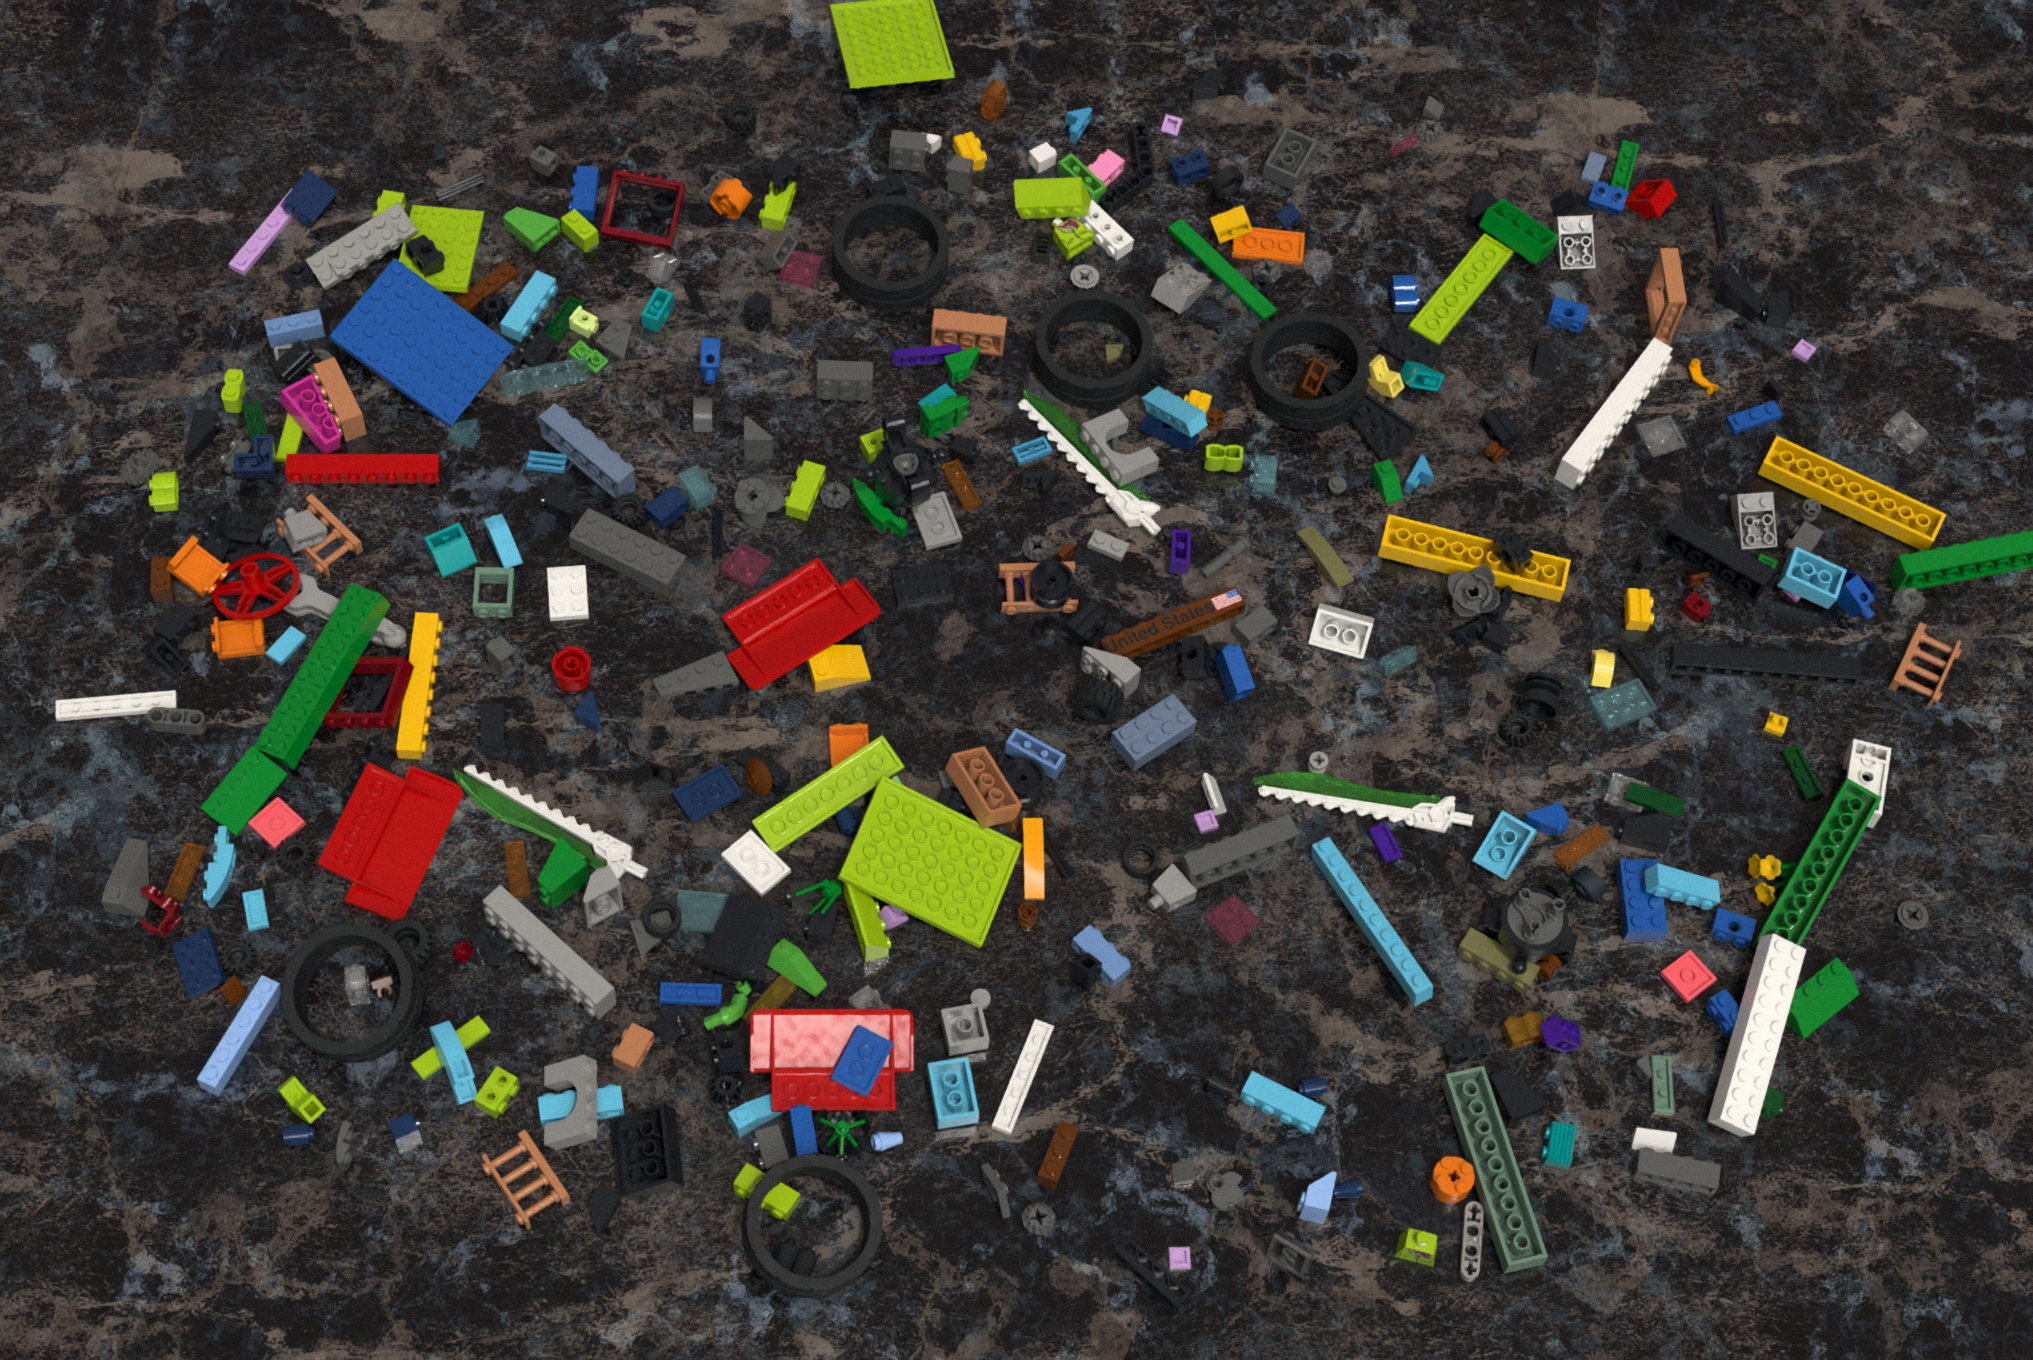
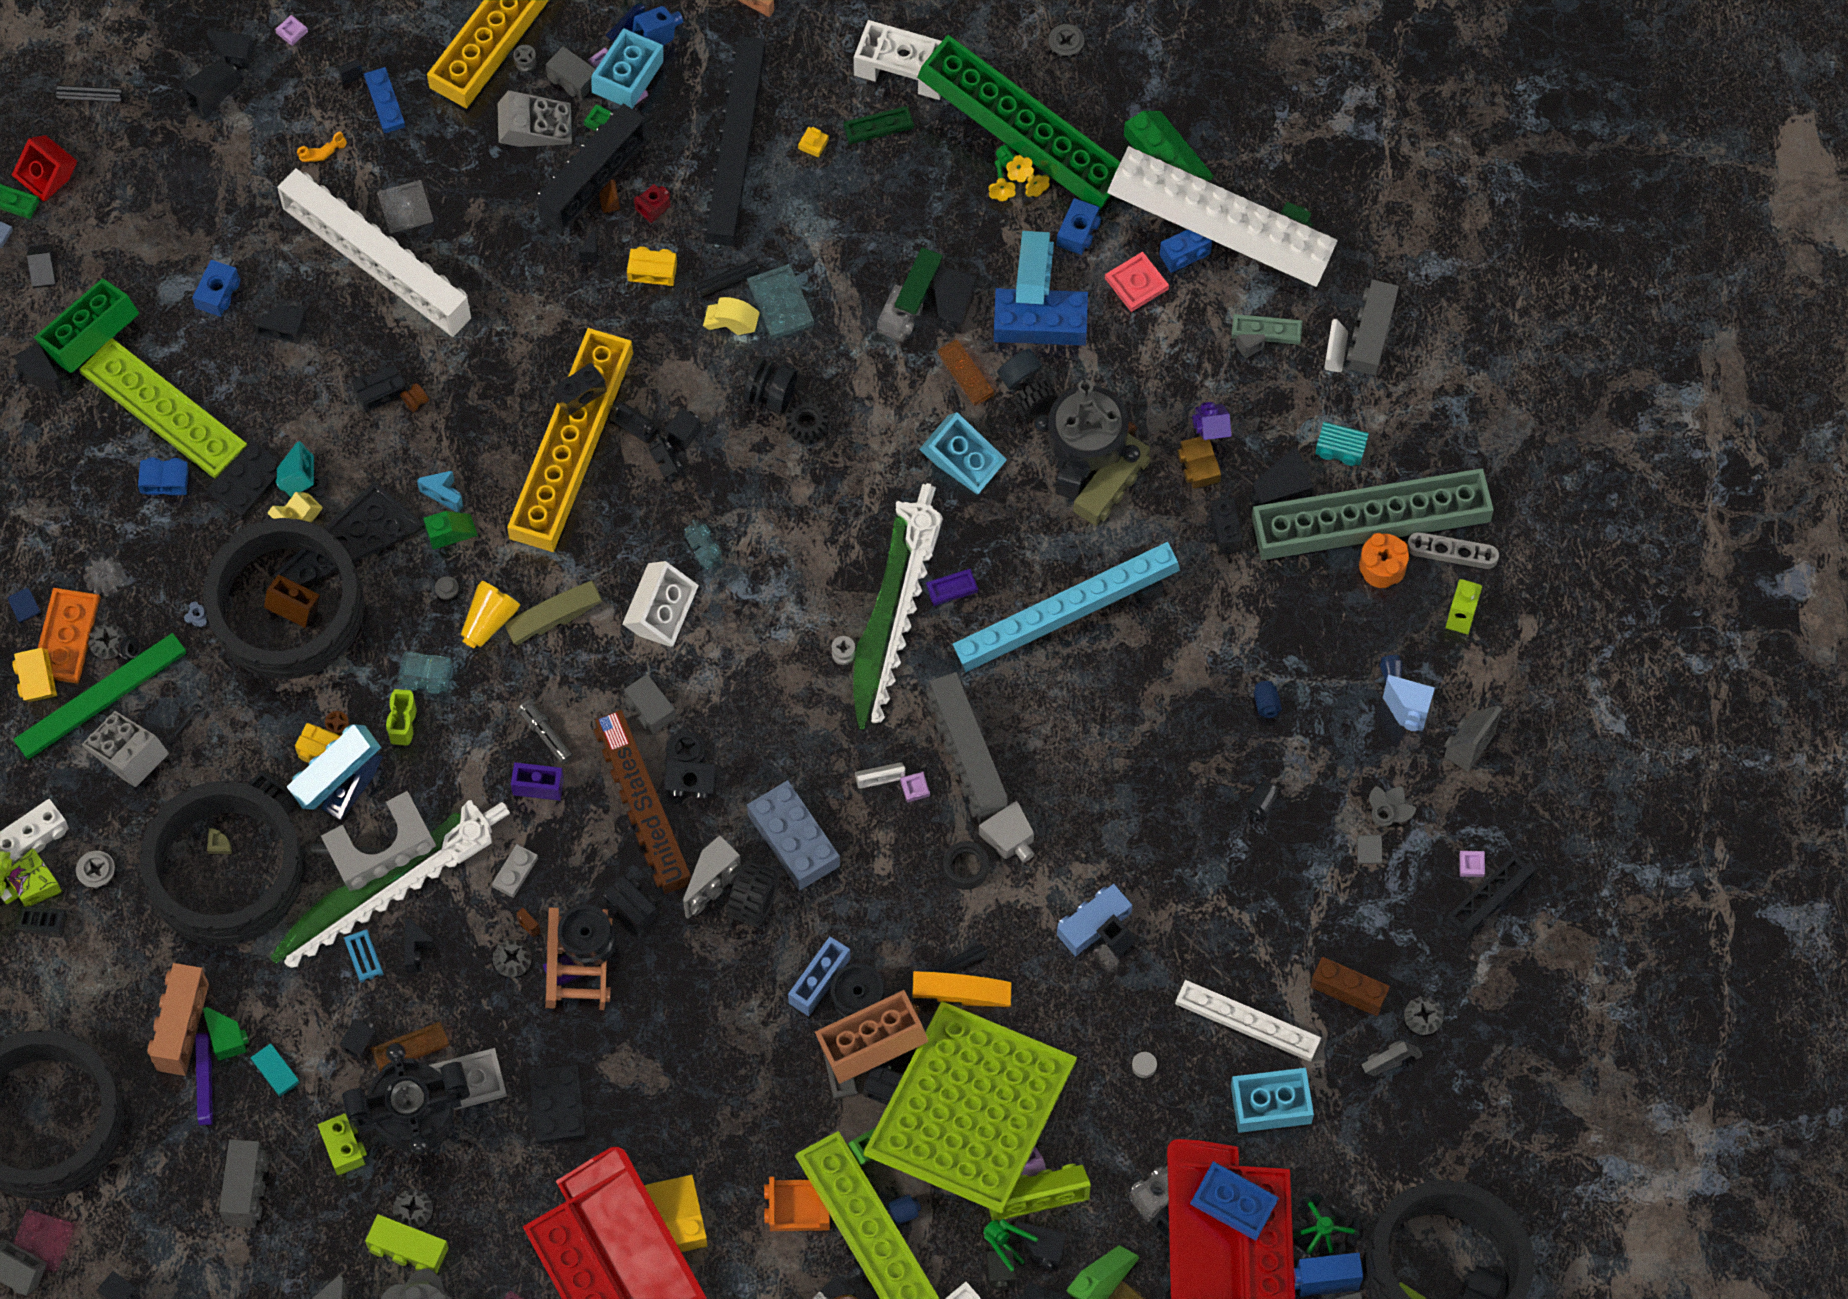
camera: 80 degrees left, 5 degrees up
(873, 509) = (441, 1160): green slope -> none
(884, 1140) = (1327, 1183): light blue cone -> none
(943, 416) = (306, 1052): green hips -> none
(964, 1029) = (1189, 1082): light grey brick -> none
(1025, 919) = (1038, 1007): reddish brown wheel -> none
(1232, 920) = (1047, 768): clear pink plate -> none
(1234, 672) = (722, 729): blue brick -> none
(1282, 1103) = (1286, 733): medium azure brick -> none
(1317, 510) = (487, 614): none -> yellow cone
(1479, 579) = (633, 432): dark grey brick -> none
(1548, 819) = (932, 401): blue slope -> none
(1575, 243) = (96, 259): light grey slope -> none
(1607, 198) = (41, 216): blue brick -> none
(1665, 315) = (214, 146): nougat window -> none

